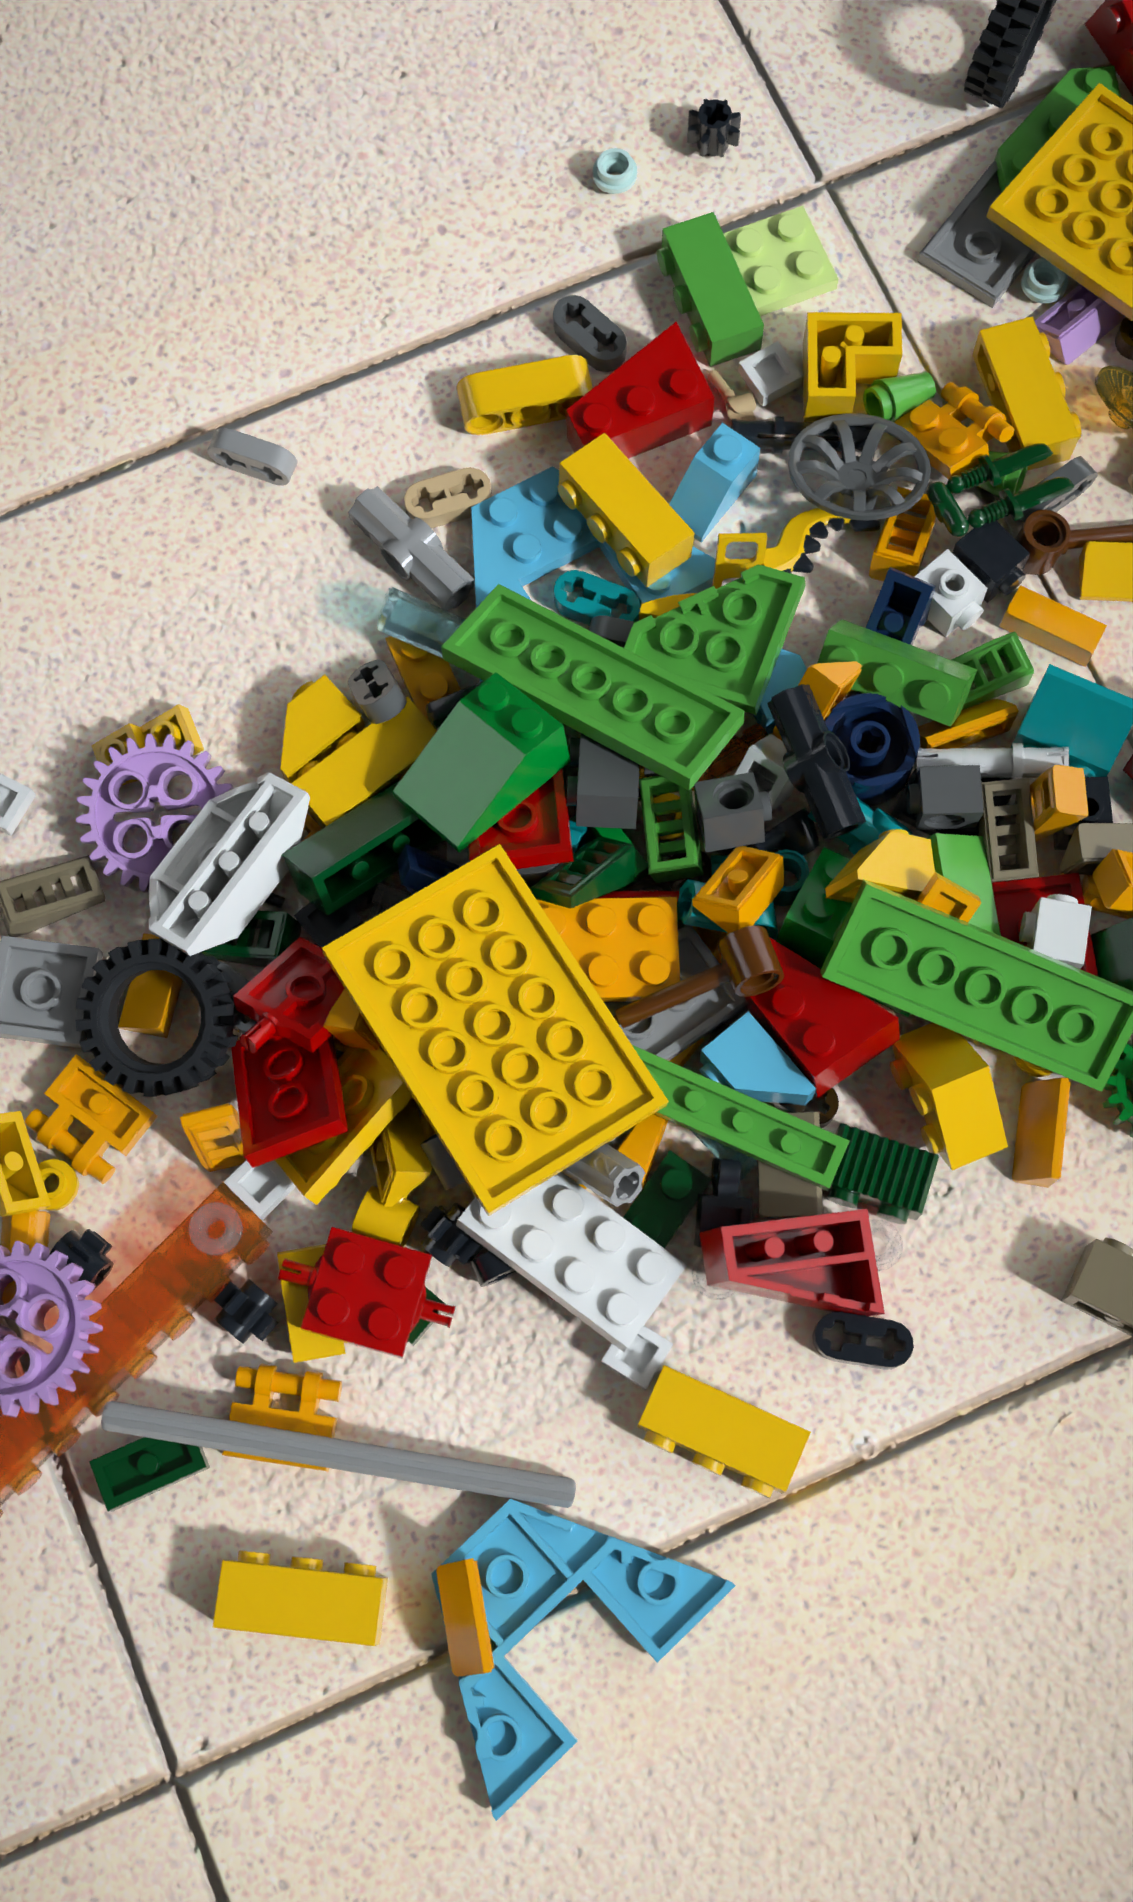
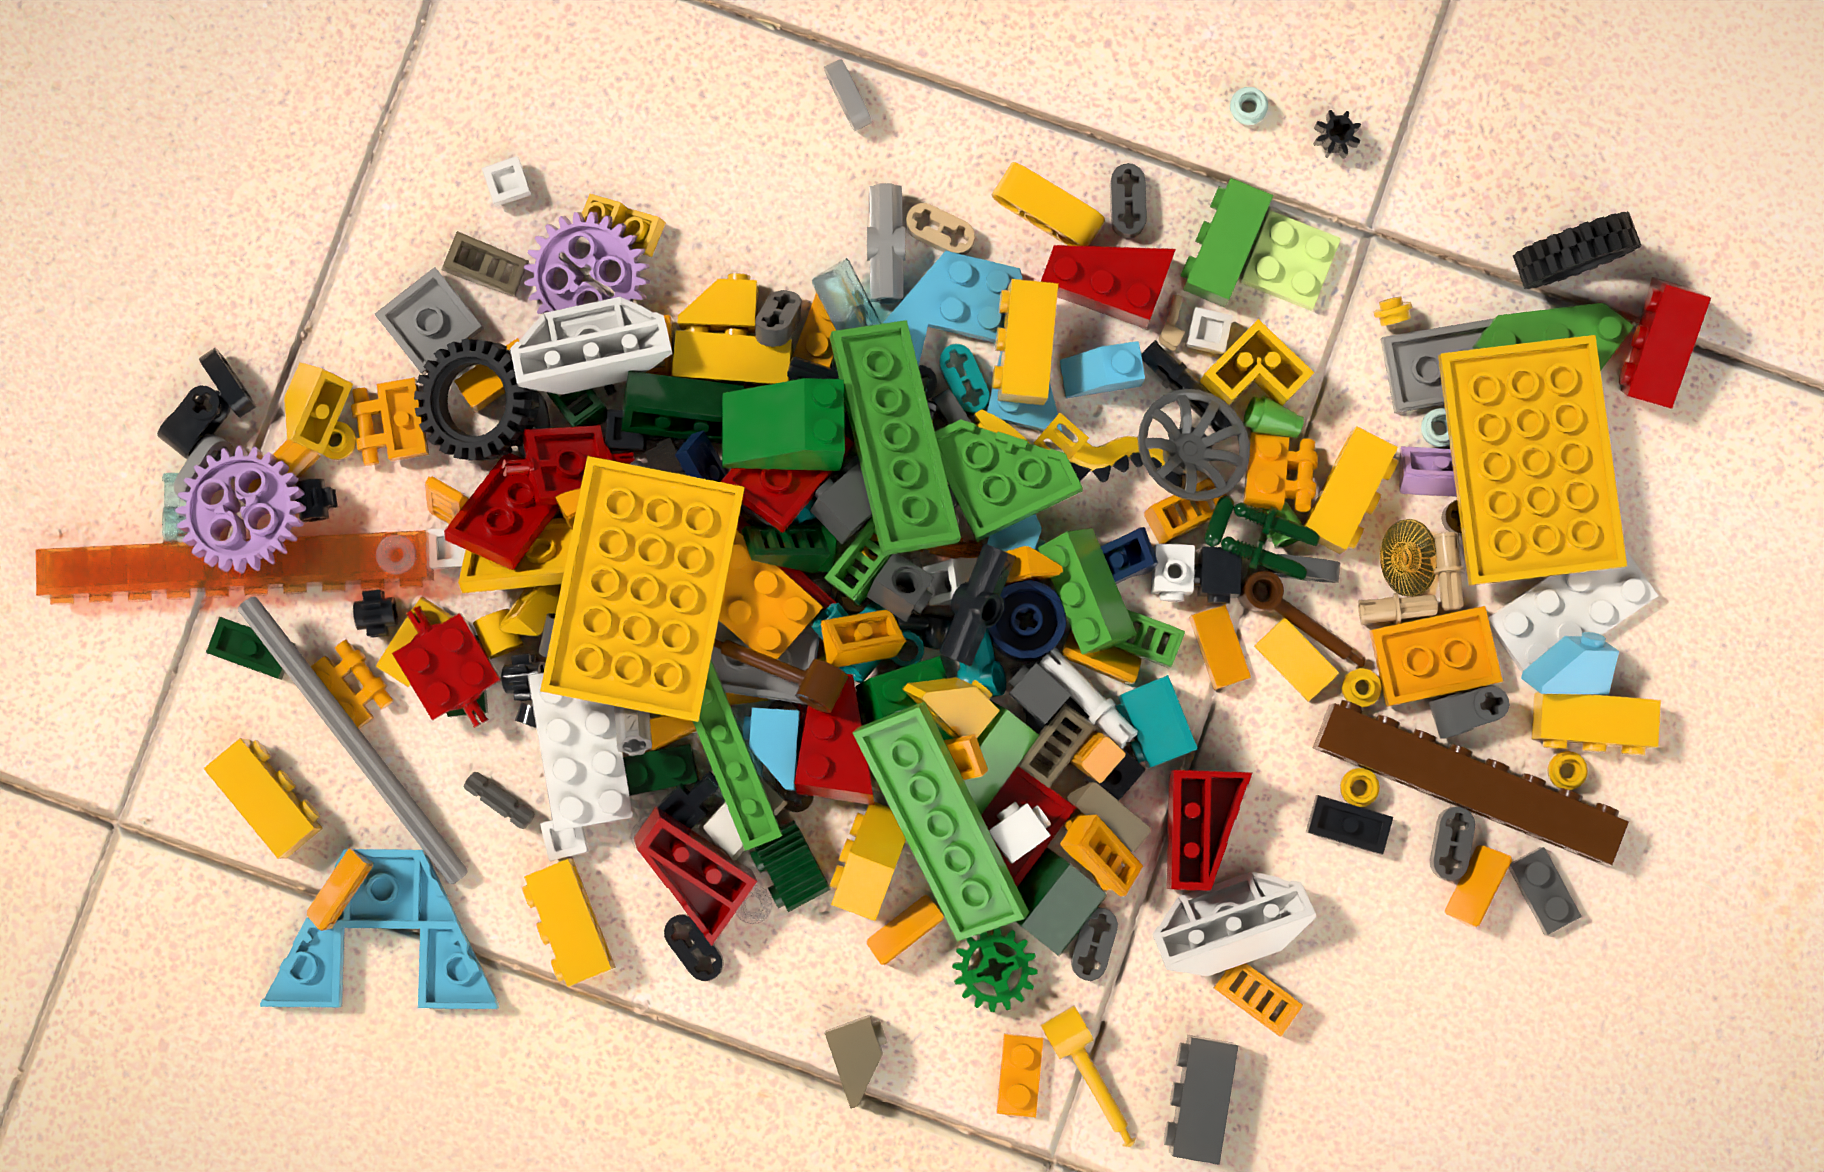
camera: 40 degrees right, 10 degrees up
(538, 1379) = (499, 800): none -> dark grey axle
(907, 223) = (1393, 311): none -> yellow plate

